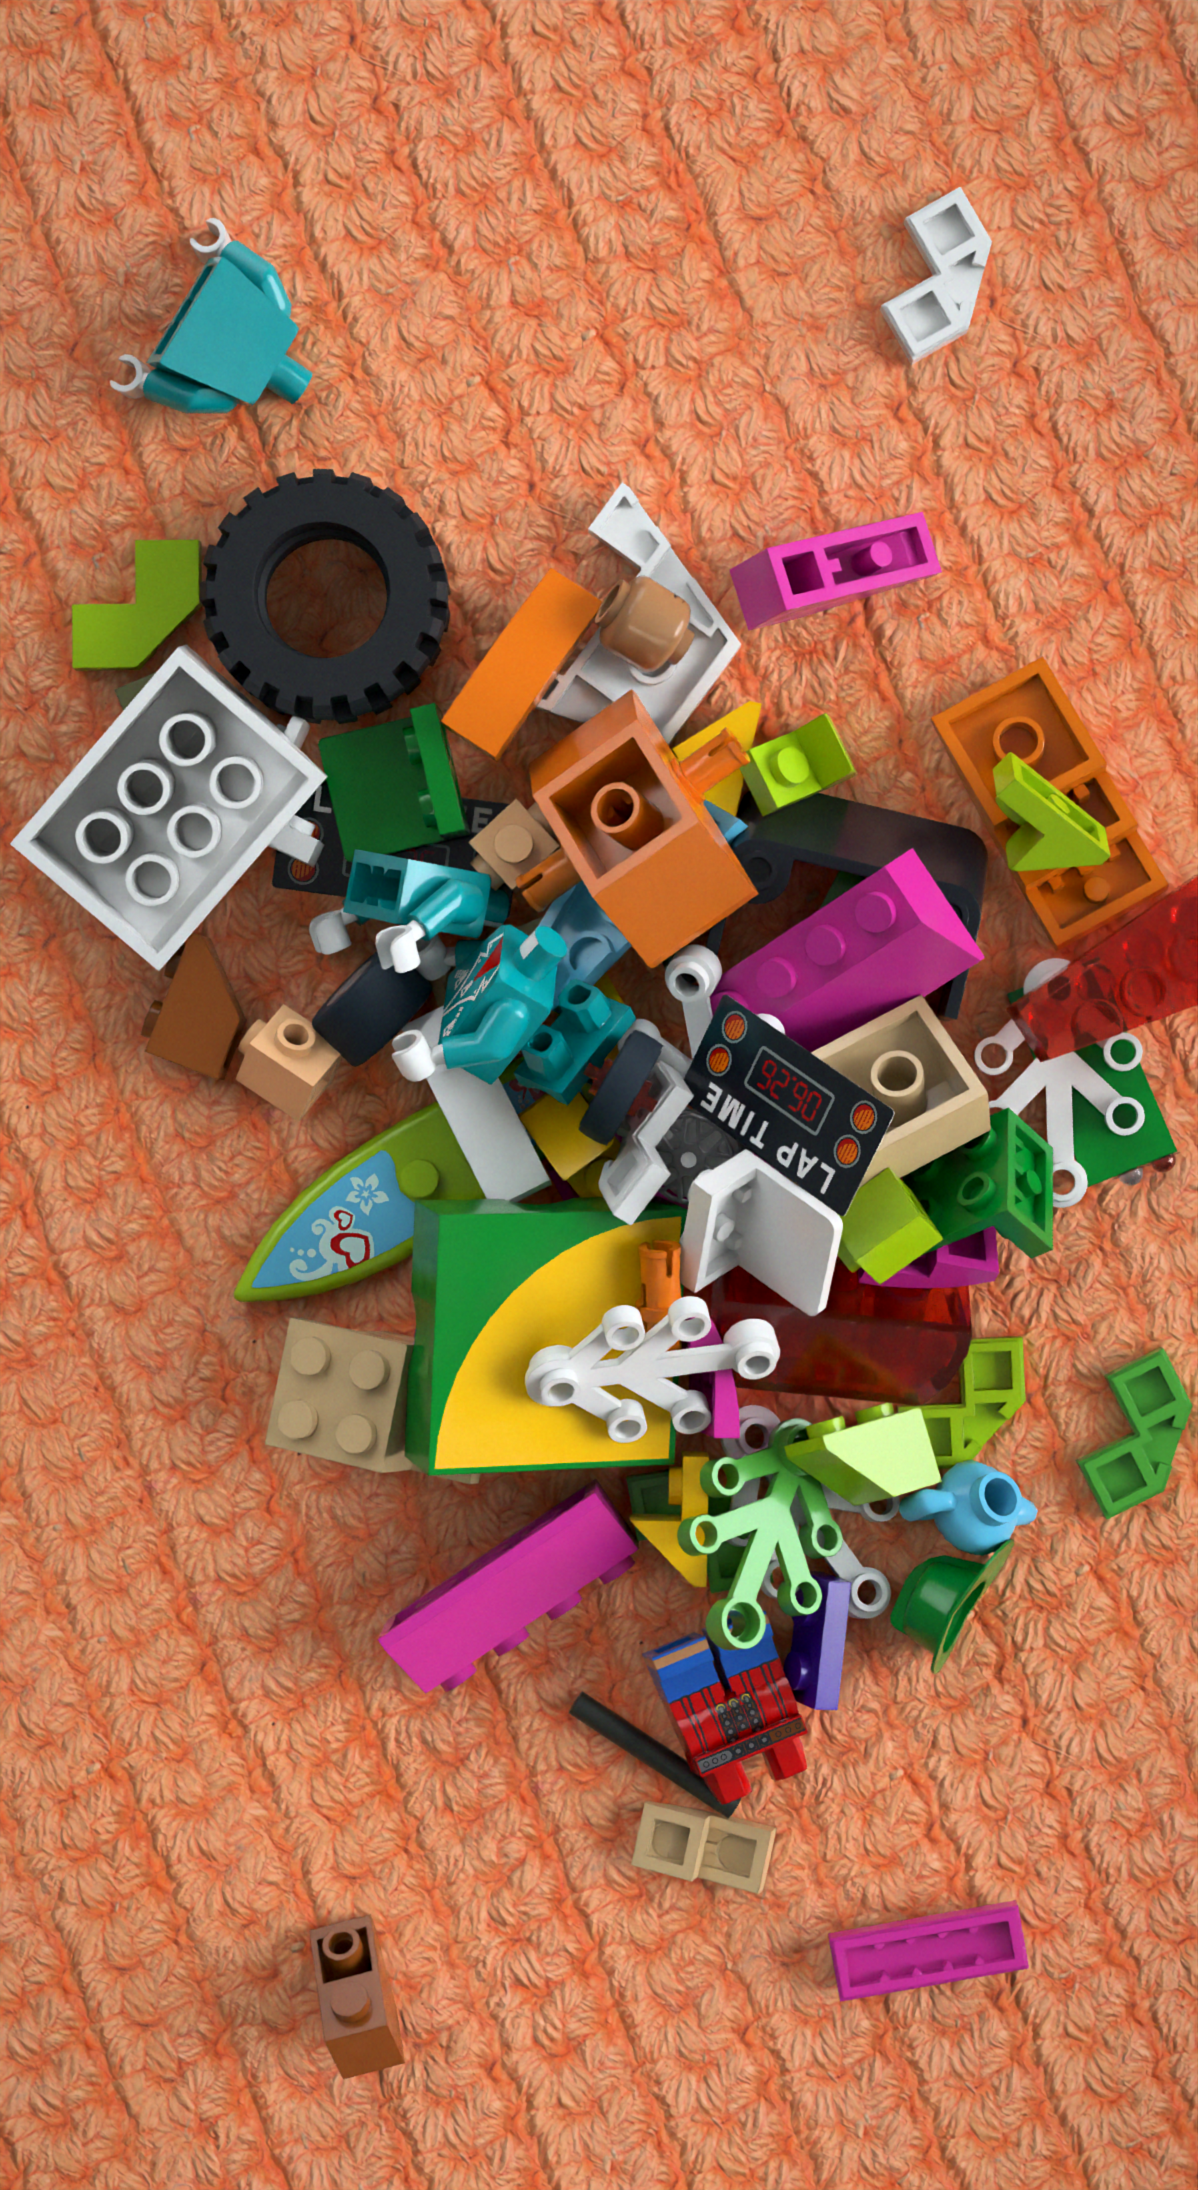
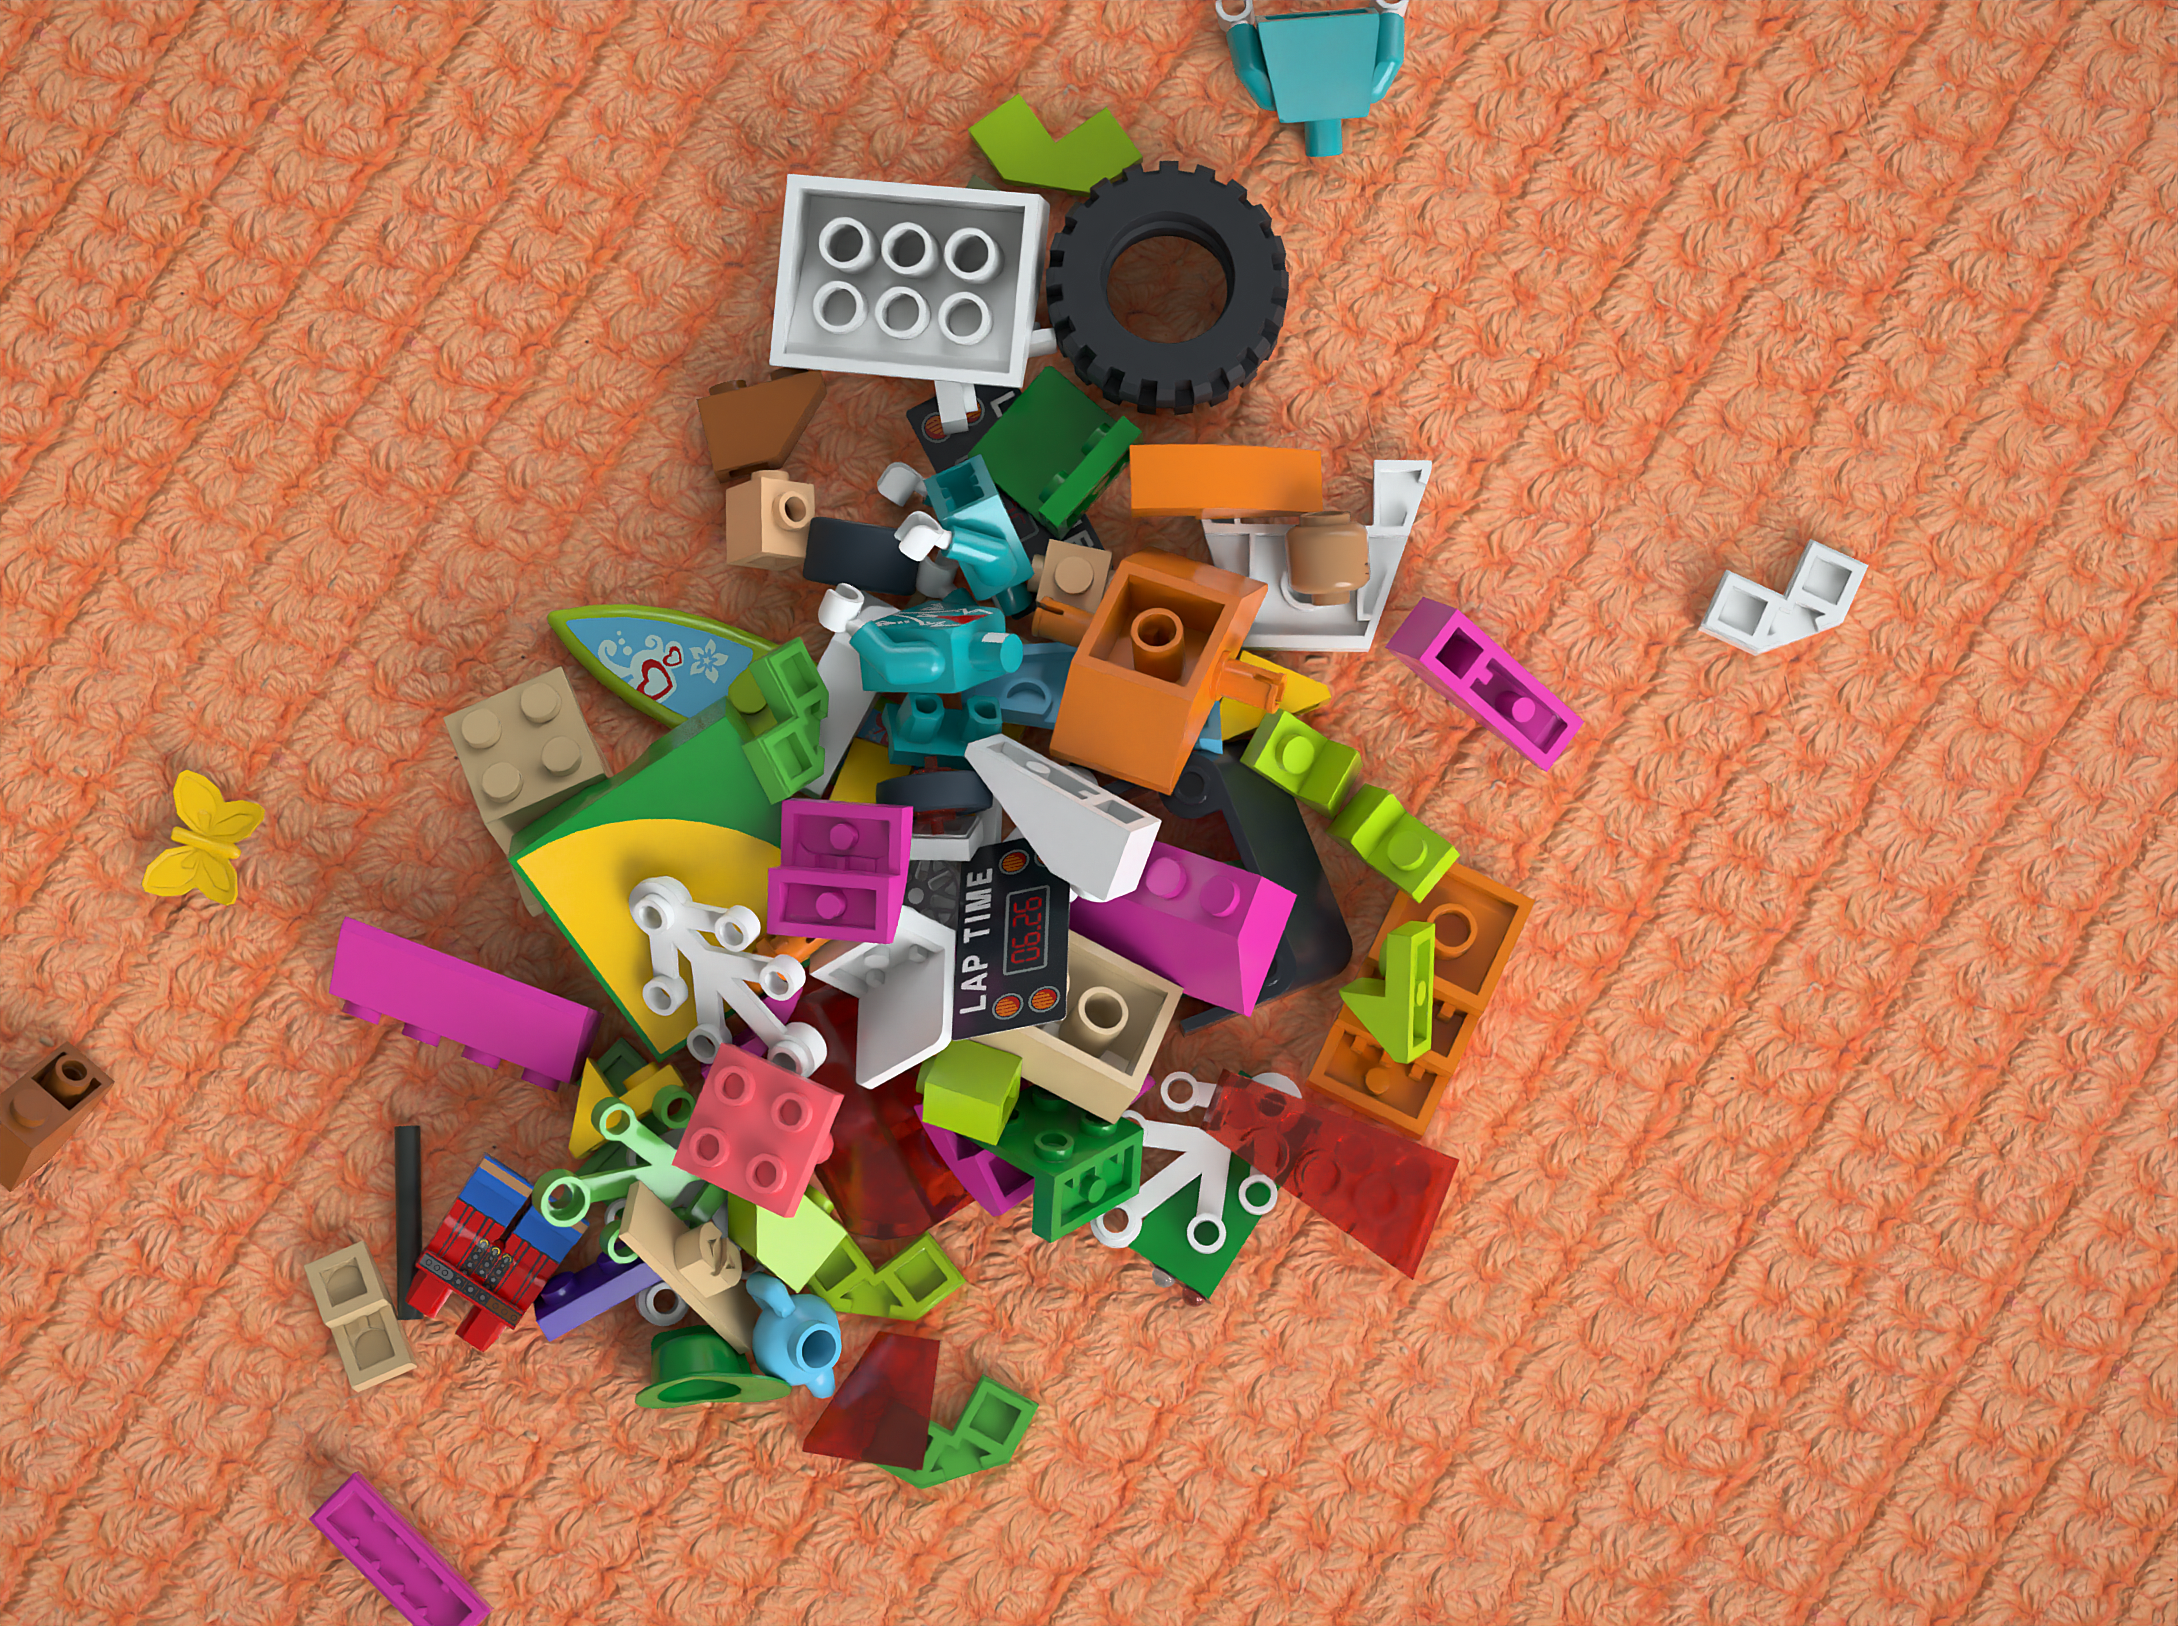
camera: 60 degrees right, 5 degrees down
(229, 1704) = (209, 846): none -> yellow piece
(502, 1183) = (789, 752): none -> bright green tile
(634, 1209) = (840, 870): none -> dark pink slope
(723, 992) = (1068, 821): none -> white slope
(796, 1425) = (758, 1130): none -> coral plate
(858, 1552) = (693, 1263): none -> tan piece
(913, 738) = (1392, 841): none -> lime slope
(1074, 1474) = (882, 1404): none -> clear red slope

